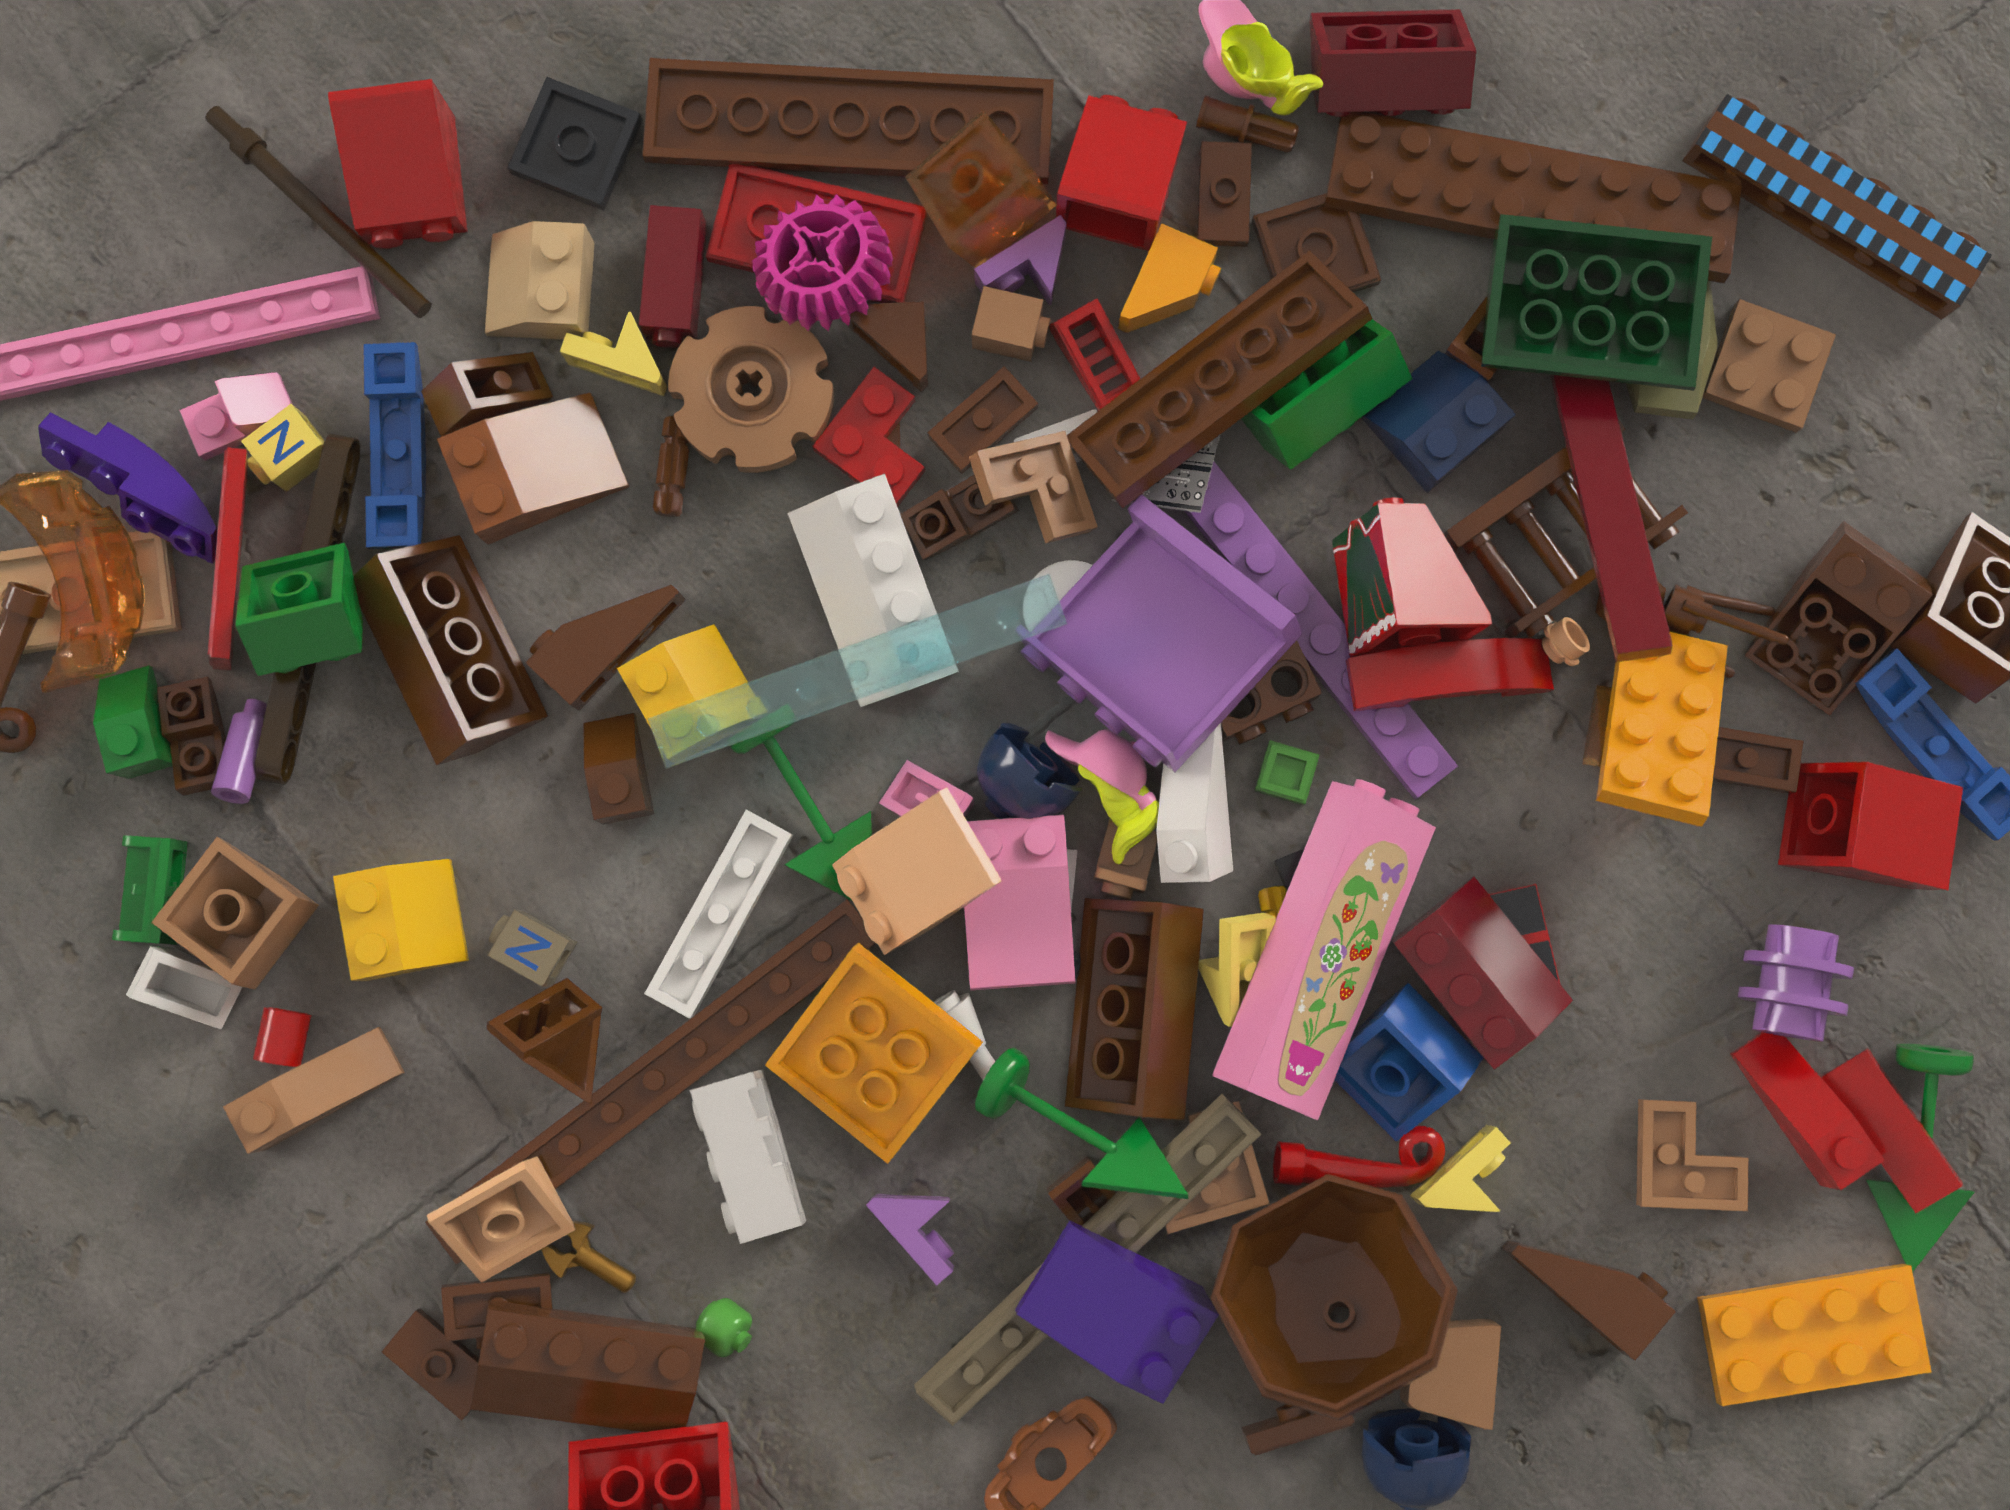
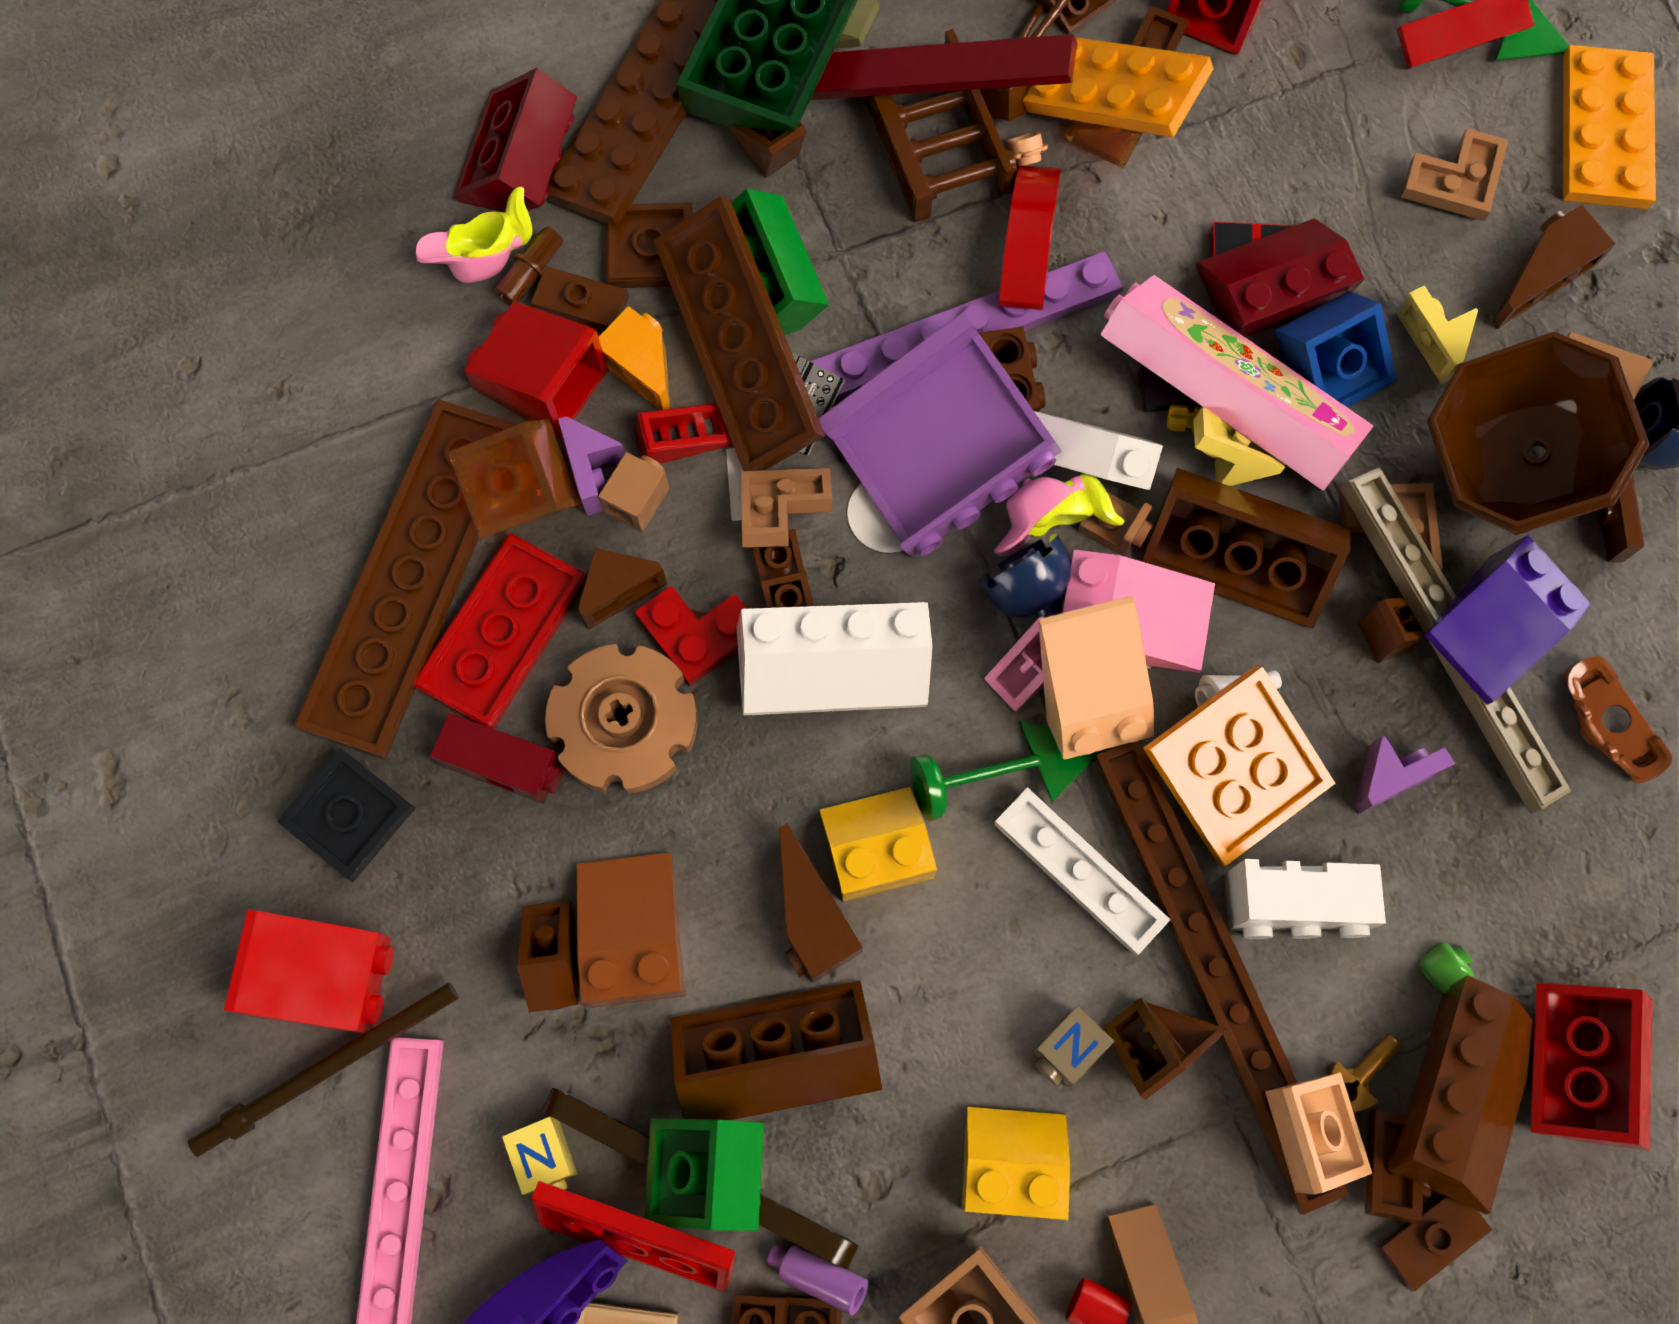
camera: 75 degrees left, 10 degrees down
(235, 412) = (490, 1200): bright pink slope -> none
(396, 445) = (570, 1053): blue slope -> none
(540, 281) = (461, 880): tan slope -> none
(616, 770) = (927, 927): reddish brown slope -> none
(627, 362) = (565, 816): light yellow slope -> none
(671, 470) = (669, 809): reddish brown axle -> none
(834, 238) = (511, 613): dark pink gear -> none
(857, 671) = (908, 684): clear light blue tile -> none
(983, 419) = (710, 535): reddish brown plate -> none
(1129, 1165) = (1387, 569): green piece -> none
(1286, 772) = (1075, 381): bright green tile -> none
(1298, 1165) = (1403, 455): red plant -> none
(1403, 582) = (949, 240): slope -> none
(1439, 419) = (823, 186): dark blue slope -> none
(1795, 982) = (1341, 54): medium lavender piece -> none
(1807, 1111) = (1441, 79): red slope -> none

